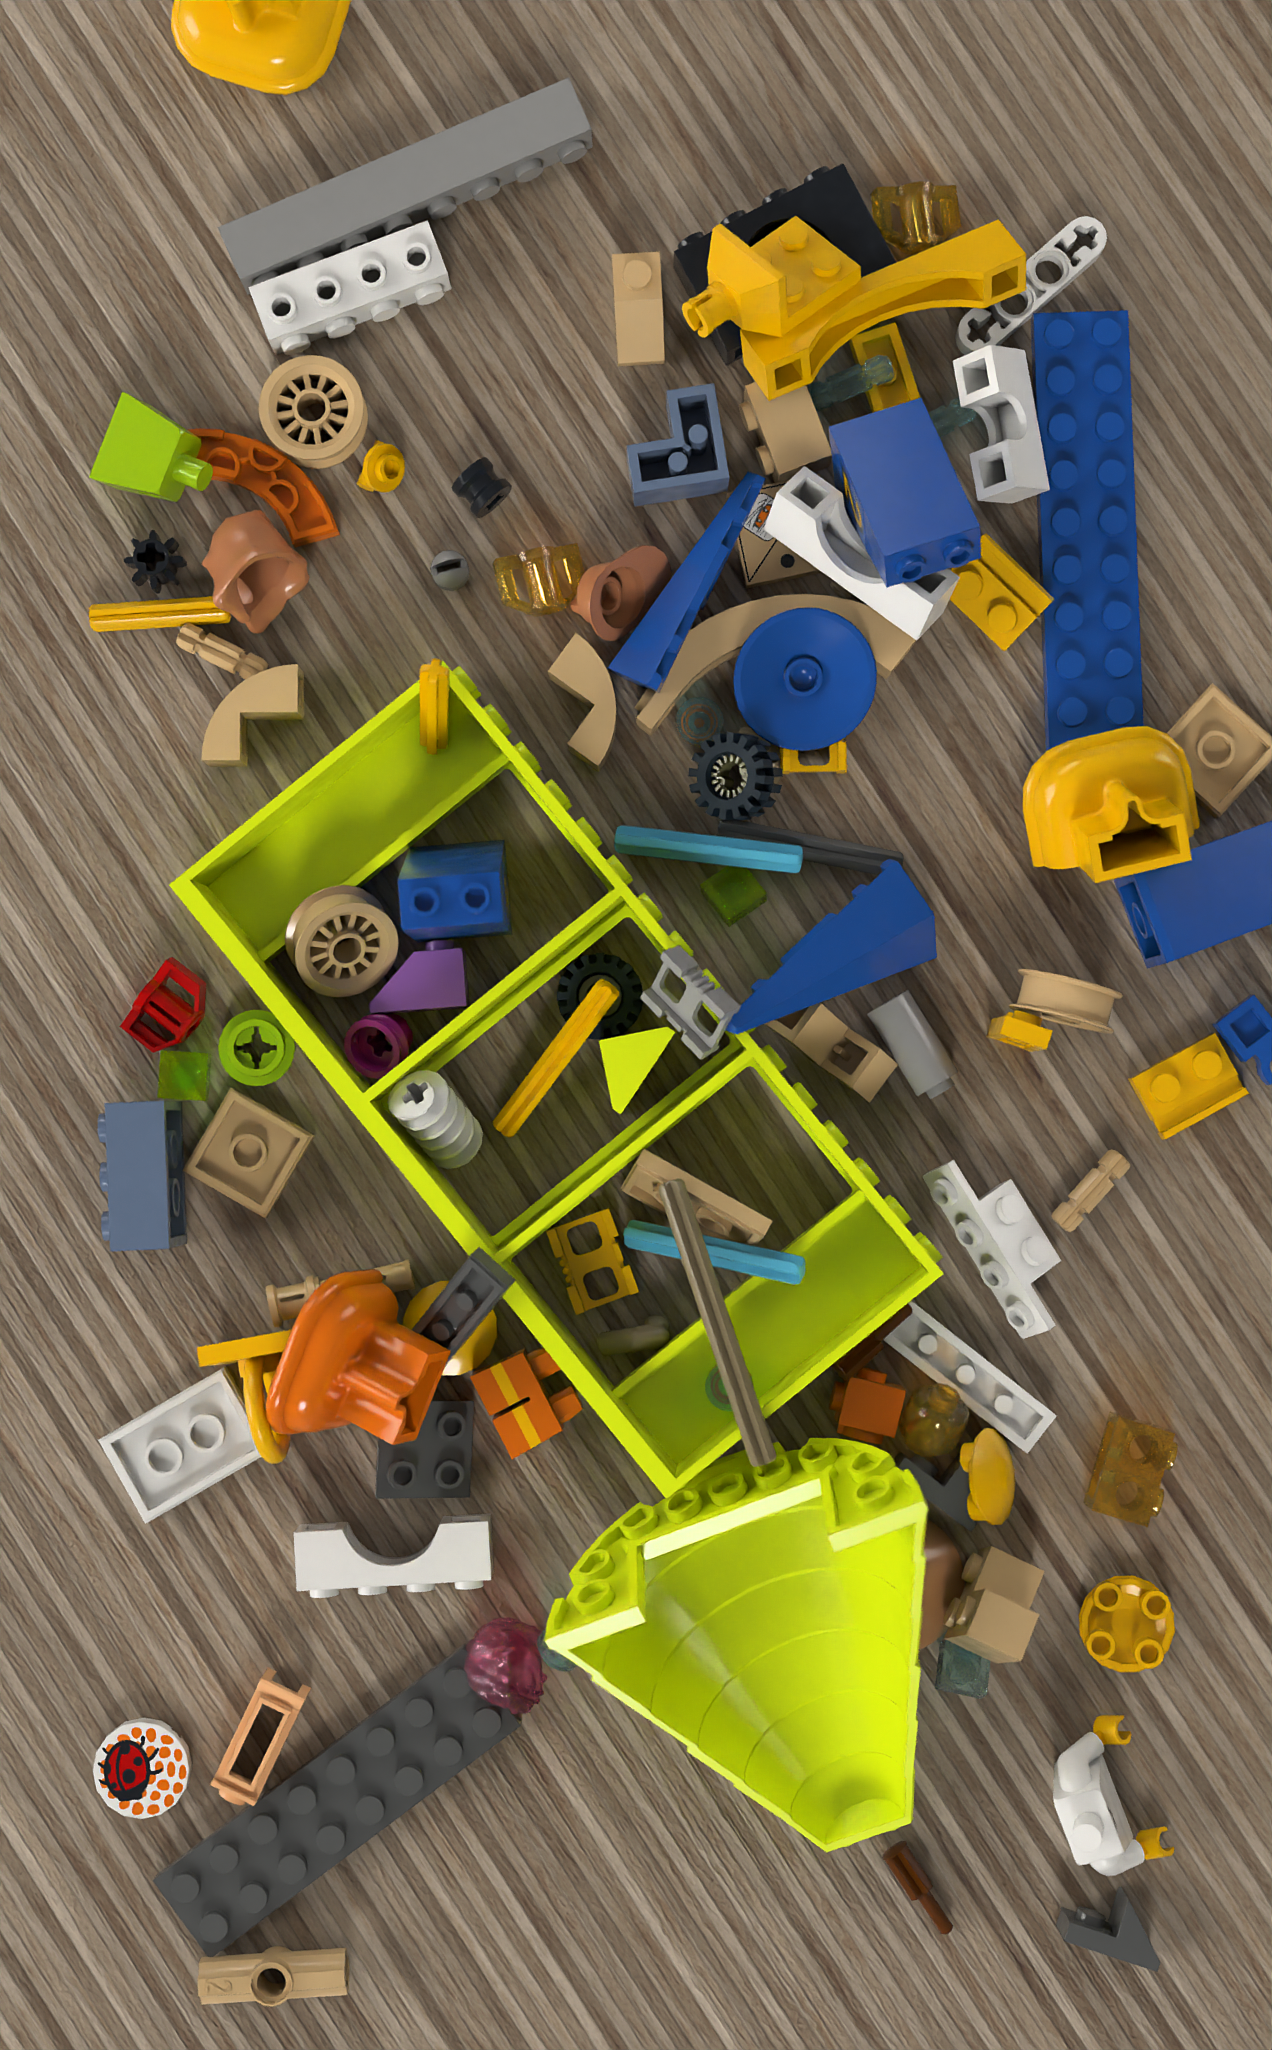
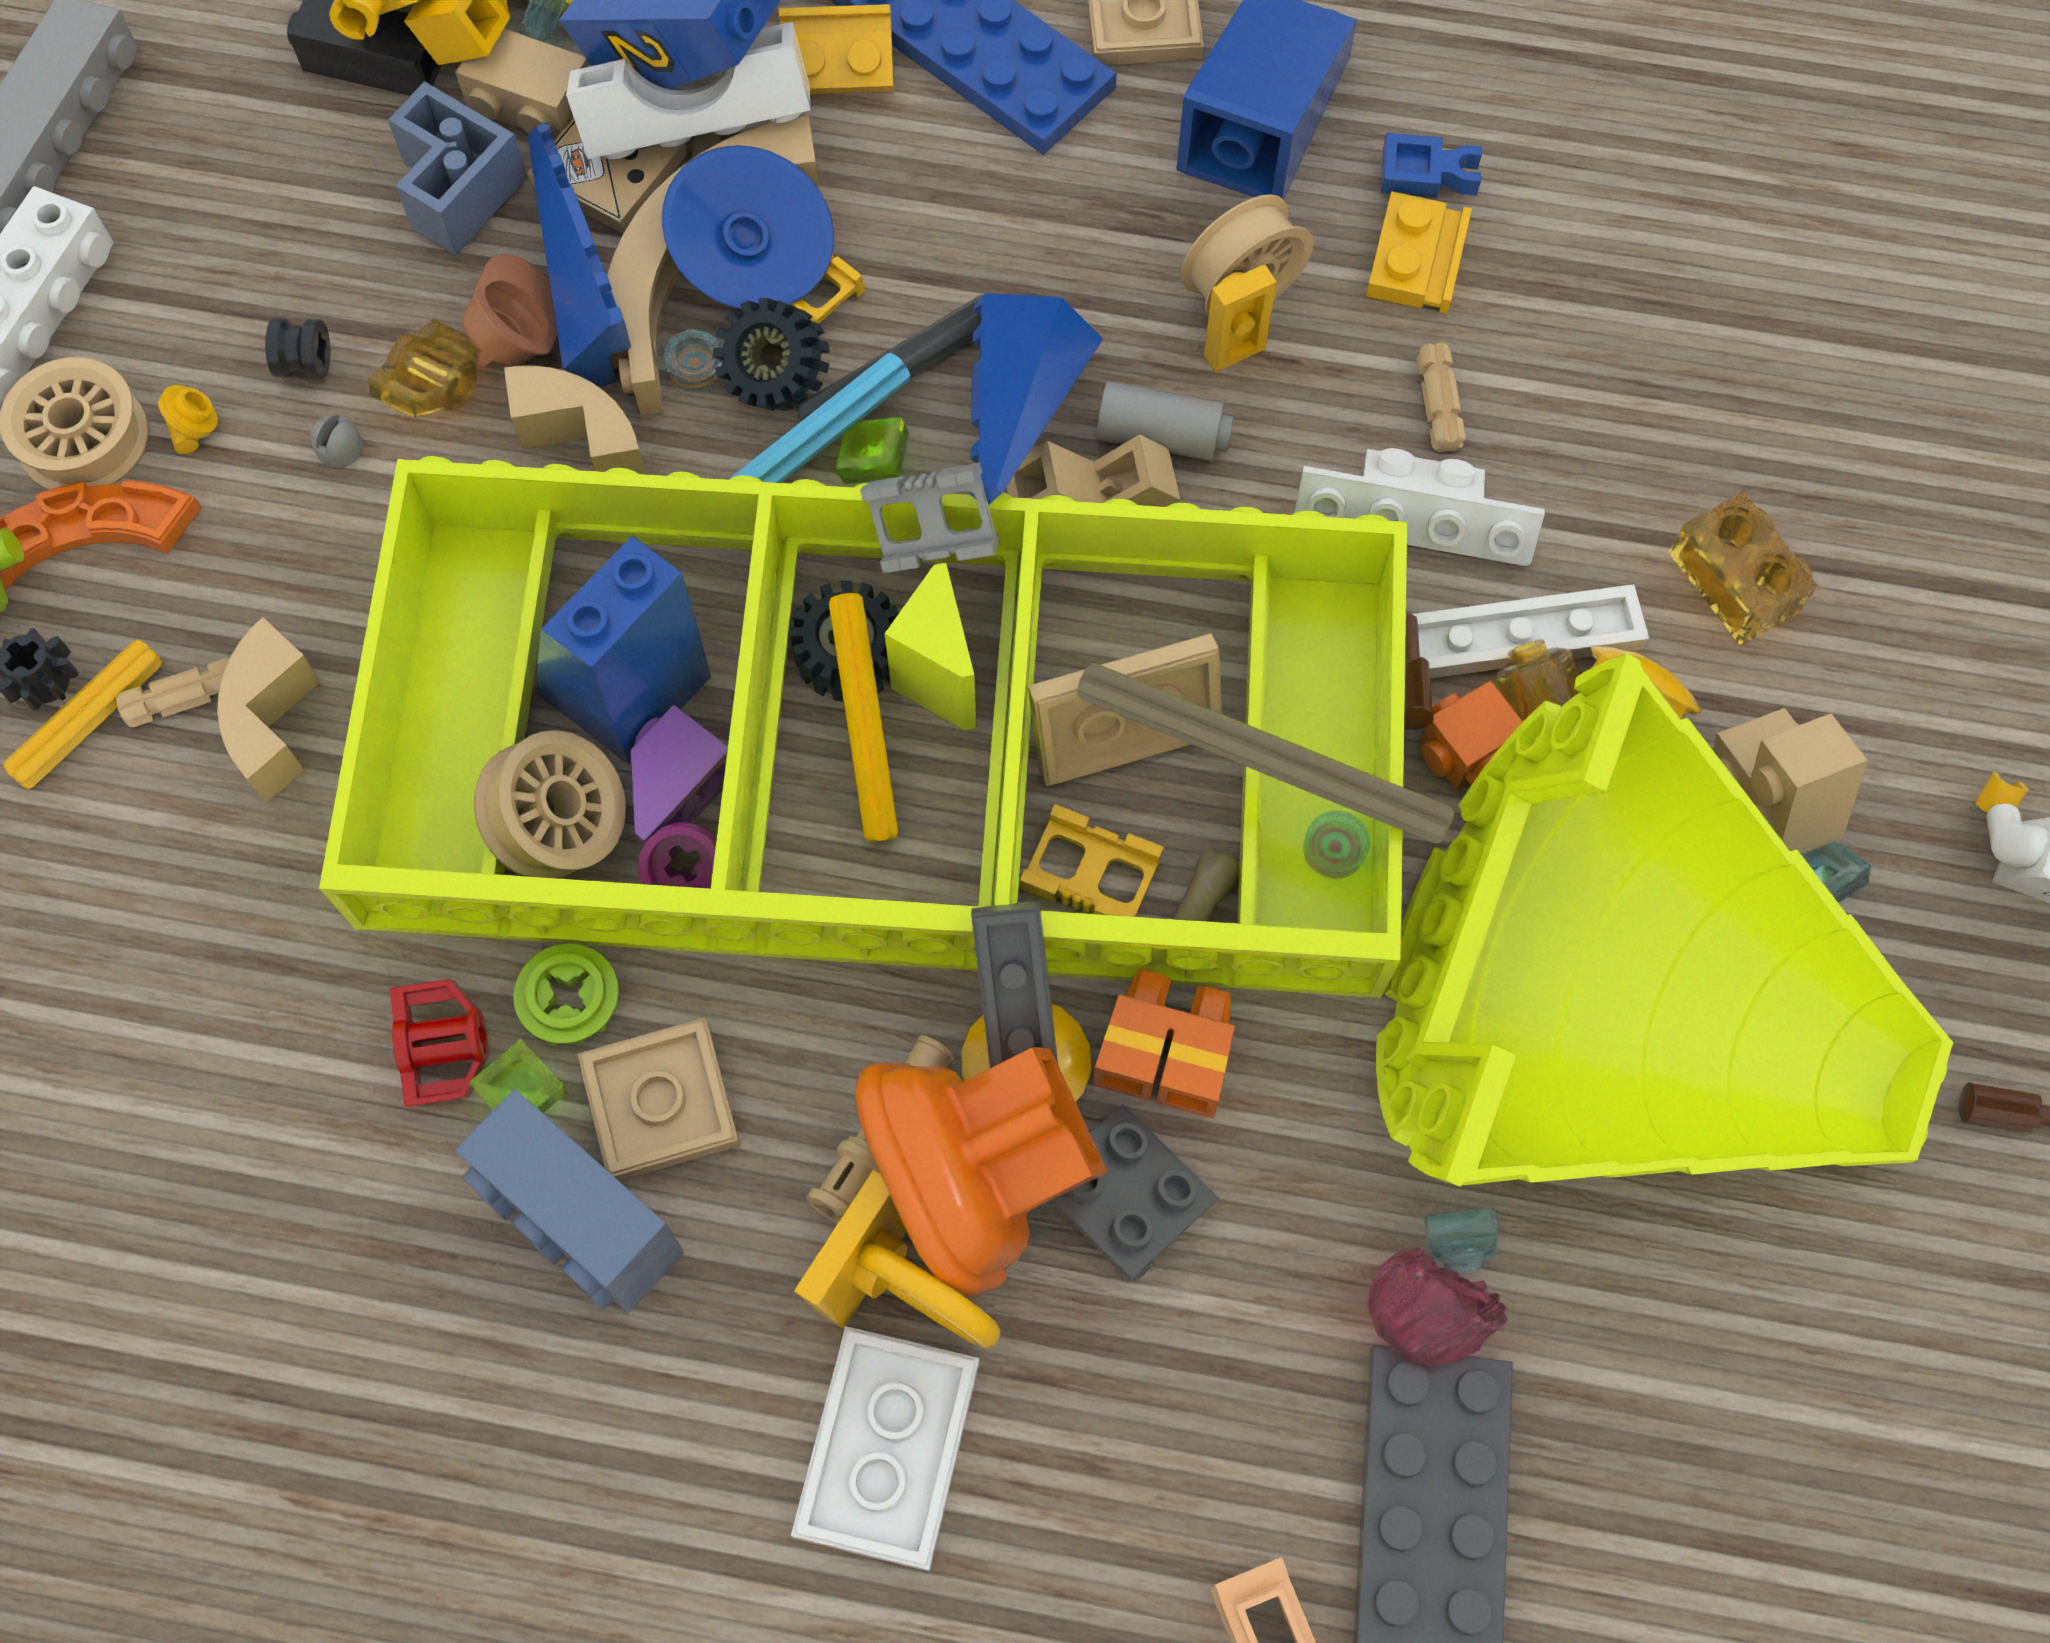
camera: 50 degrees left, 20 degrees down
(253, 569) = (142, 584): nougat piece -> none
(334, 1559) = (1154, 1390): white arch -> none
(434, 706) = (429, 511): yellow axle -> none
(436, 1118) = (799, 859): white piece -> none
(638, 308) = (299, 106): tan slope -> none
(722, 1253) = (1168, 753): medium azure axle -> none
(1108, 785) = (1104, 95): yellow piece -> none
(1126, 1624) = (1900, 696): yellow dish -> none

